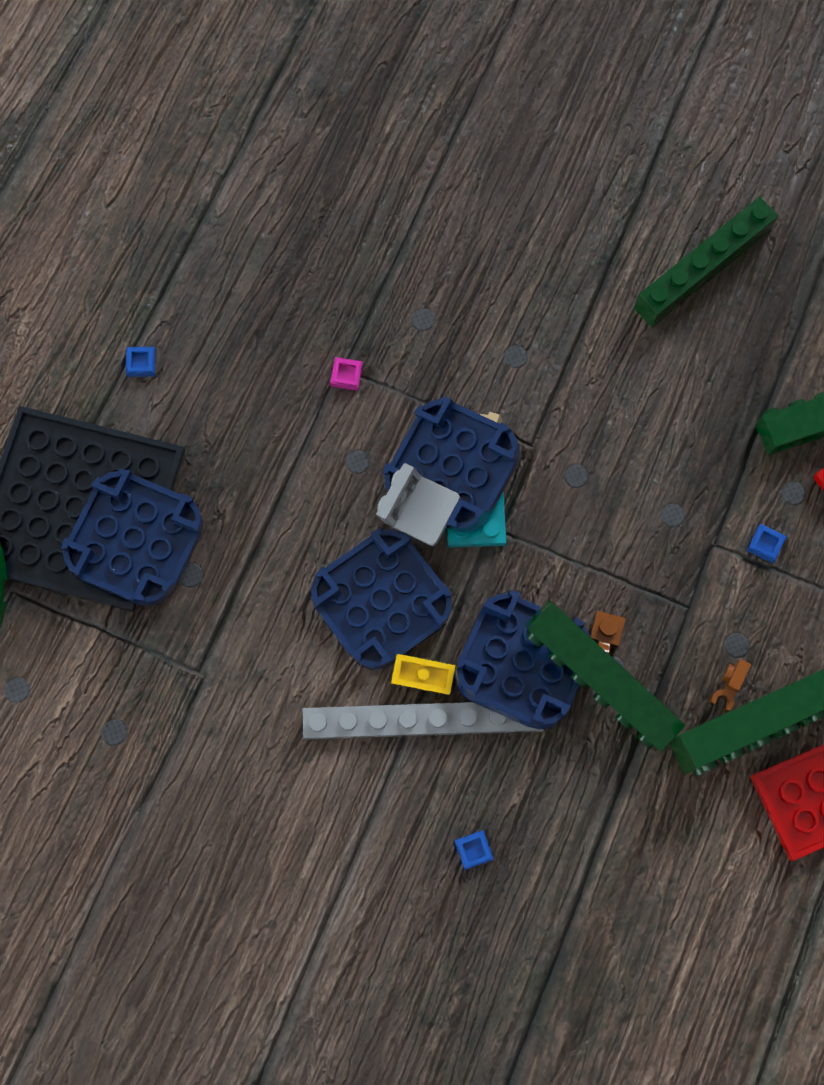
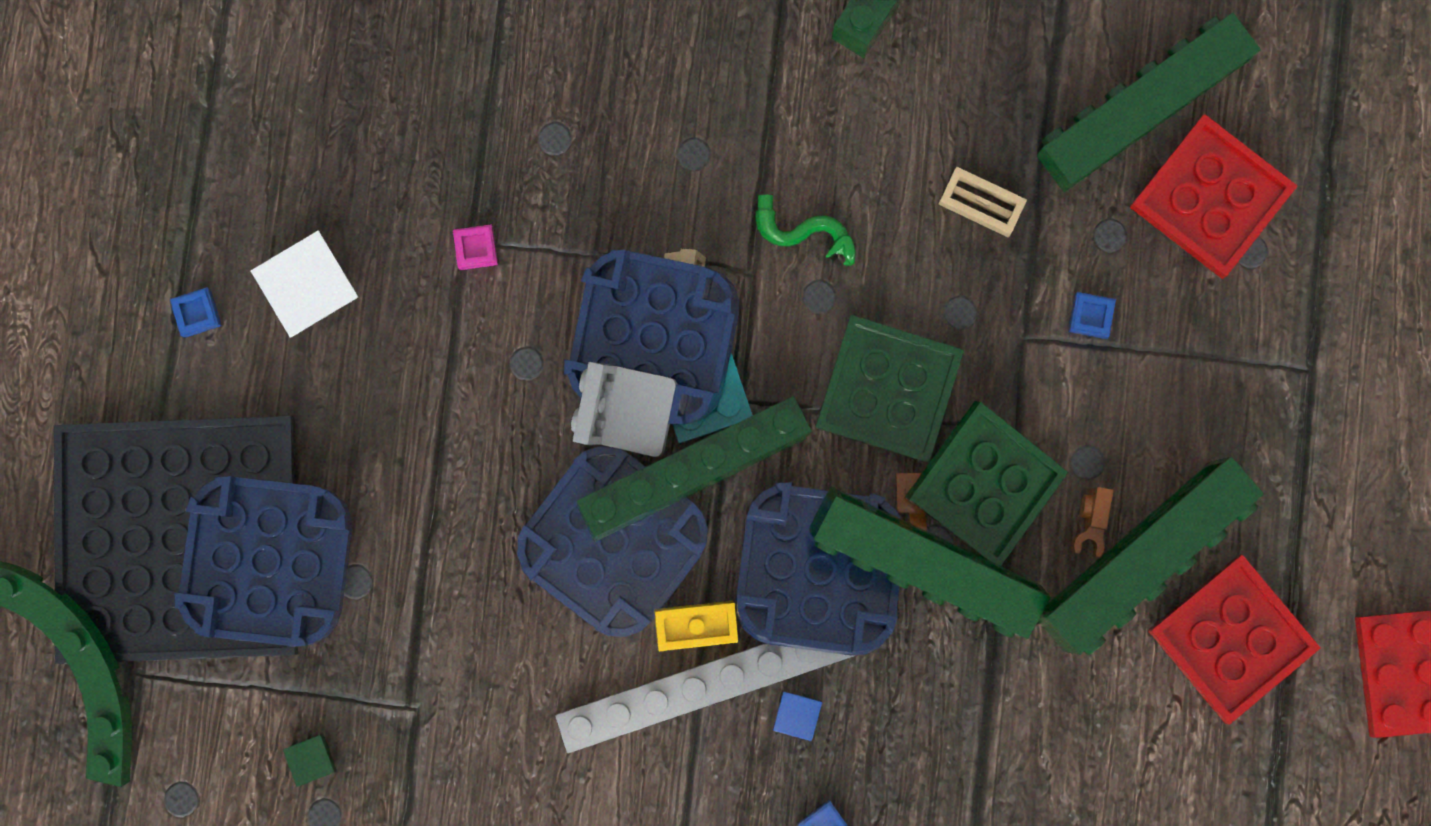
camera: 10 degrees left, 10 degrees up
(117, 688) = (309, 760): none -> dark green tile
(221, 362) = (304, 284): none -> white piece
(454, 562) = (693, 468): none -> dark green brick
(476, 761) = (797, 716): none -> tile
(553, 413) = (766, 225): none -> green animal
(608, 551) = (889, 389): none -> dark green plate
(660, 634) = (986, 484): none -> dark green plate
(701, 451) = (975, 215): none -> tan tile

